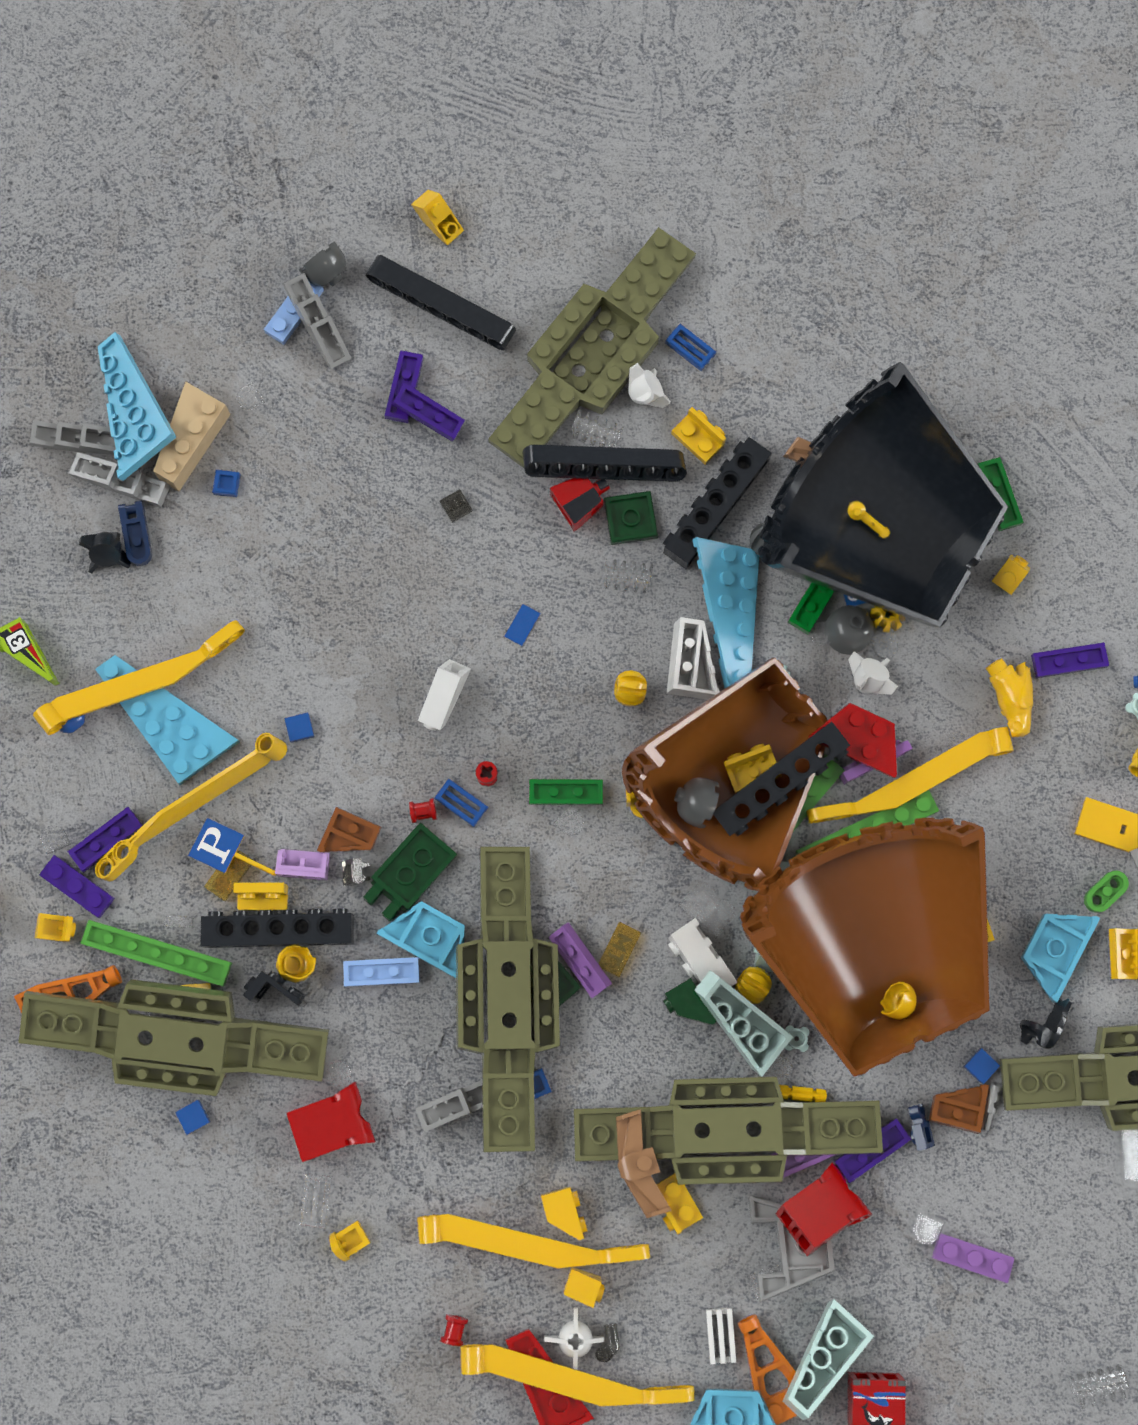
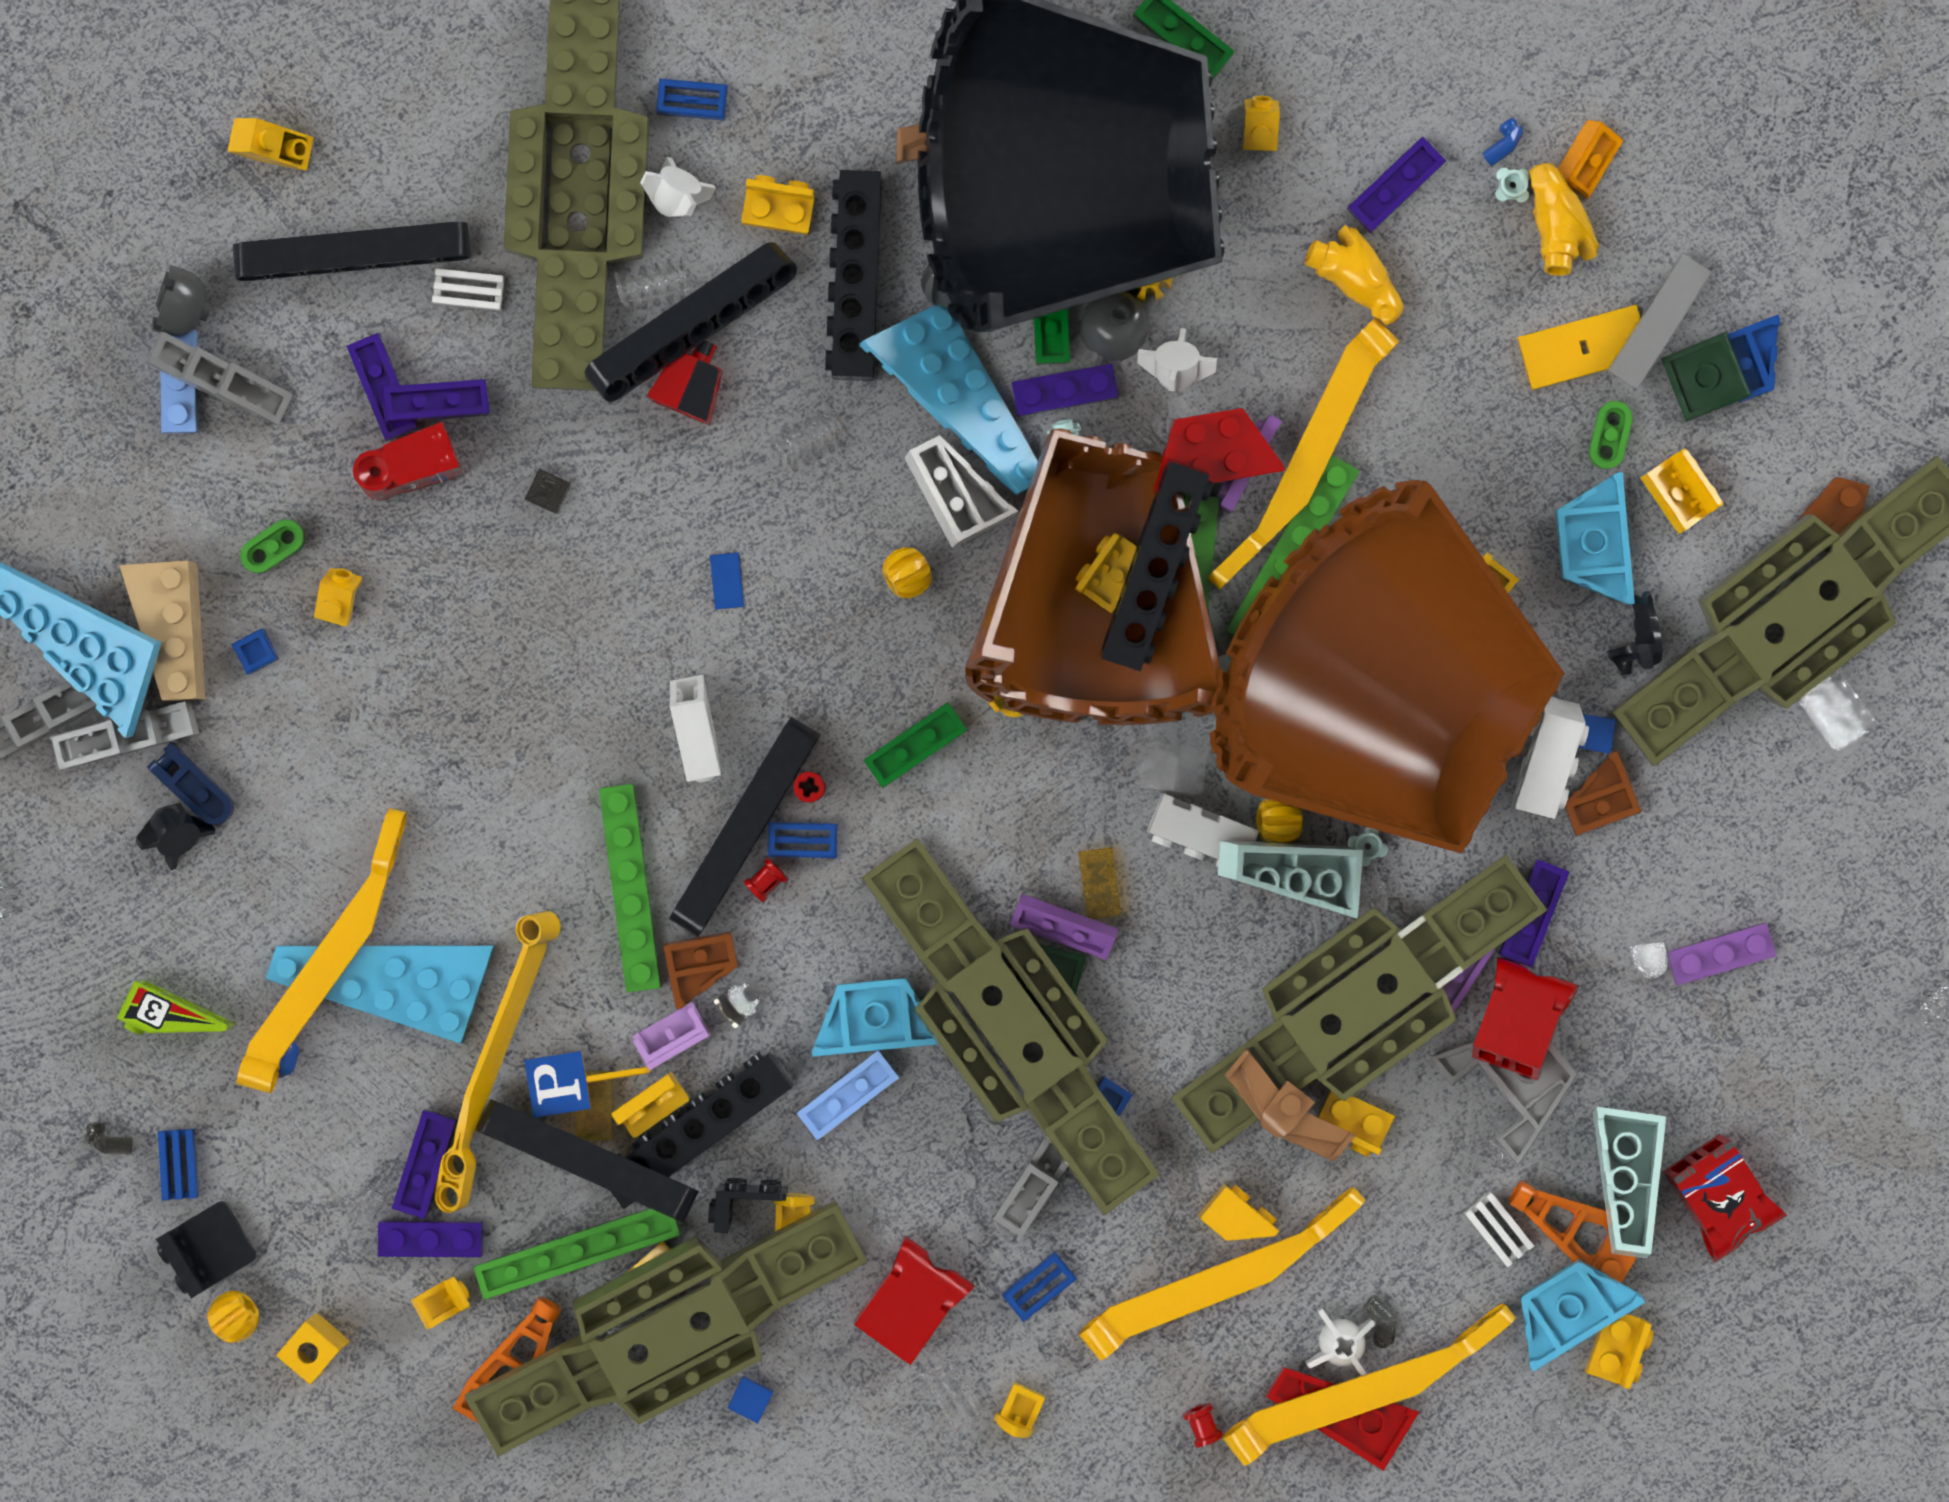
camera: 30 degrees left, 10 degrees up
(200, 902) = (587, 1160): none -> black beam
(280, 430) = (273, 545): none -> bright green plate
(294, 482) = (337, 596): none -> yellow bracket
(295, 963) = (744, 1153): yellow hair -> none
(299, 727) = (553, 882): blue tile -> none
(300, 1016) = (795, 1207): none -> yellow tile
(340, 762) = (630, 888): none -> bright green plate
(387, 434) = (407, 464): none -> red piece
(392, 1172) = (1015, 1304): none -> blue tile
(410, 871) = (799, 958): dark green tile -> none
(432, 771) = (744, 826): none -> black beam
(476, 354) = (439, 286): none -> white tile
(584, 1287) = (1314, 1282): yellow slope -> none
(630, 518) = (765, 363): dark green tile -> none
(687, 1004) = (1217, 893): dark green slope -> none
(697, 801) = (1075, 655): dark grey cylinder -> none
(794, 648) = (1064, 390): none -> dark purple plate
(803, 1093) = (1415, 903): yellow axle -> none
(857, 511) = (1030, 175): yellow piece -> none
(899, 1001) = (1456, 726): yellow hair -> none
(921, 1131) = (1575, 855): dark blue plate -> none
(944, 1061) = (1551, 759): none -> white wedge
(991, 1106) = (1635, 772): light grey pin -> none

